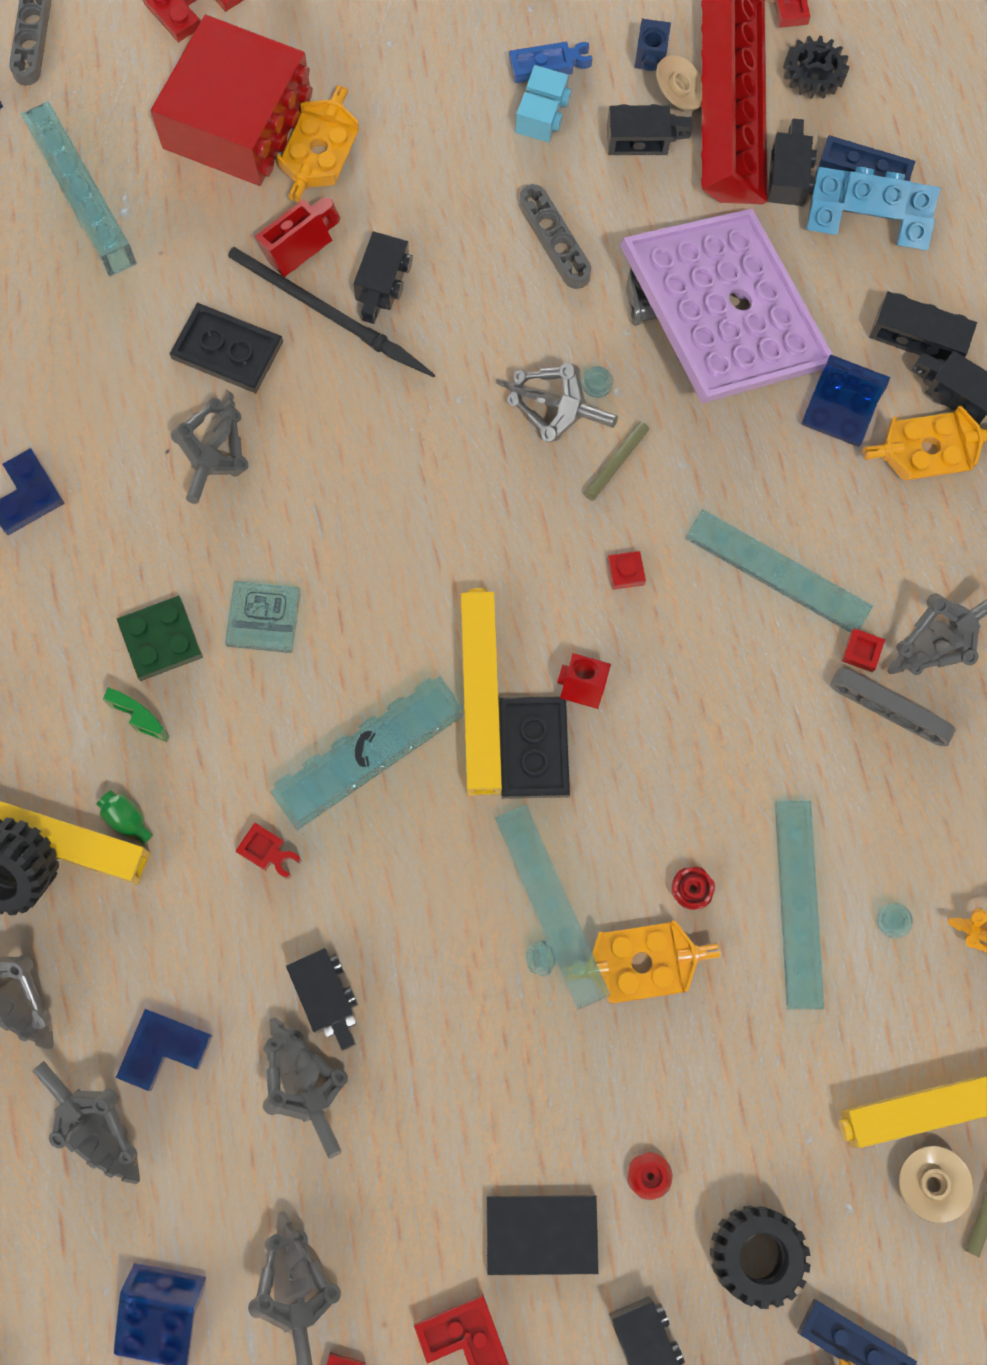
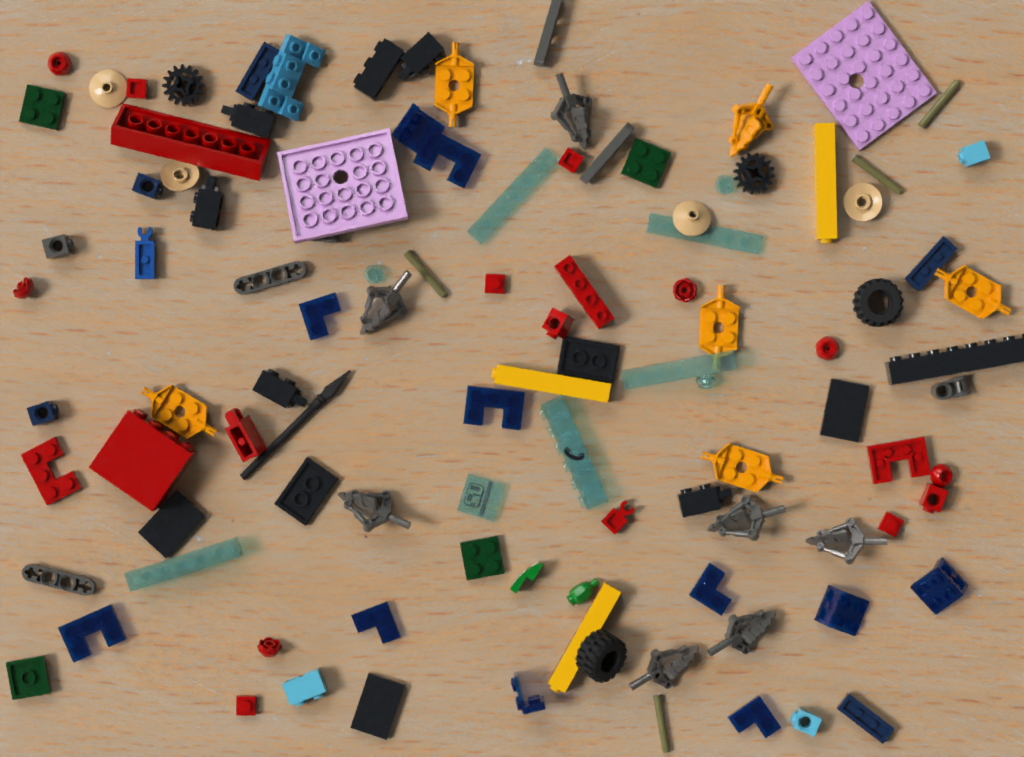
camera: 75 degrees left, 15 degrees up
(141, 167) = (171, 524): none -> black tile
(379, 1084) = (757, 471): none -> light orange plate
(435, 630) = (482, 397): none -> clear blue plate
(517, 306) = (314, 312): none -> clear blue plate
(541, 107) = (177, 266): medium azure piece -> none
(648, 713) = (584, 292): none -> red brick
(810, 874) = (688, 225): none -> tan dish
(832, 433) = (439, 144): none -> clear blue plate
(892, 777) = (645, 163): none -> dark green plate
(933, 953) = (765, 179): none -> black gear

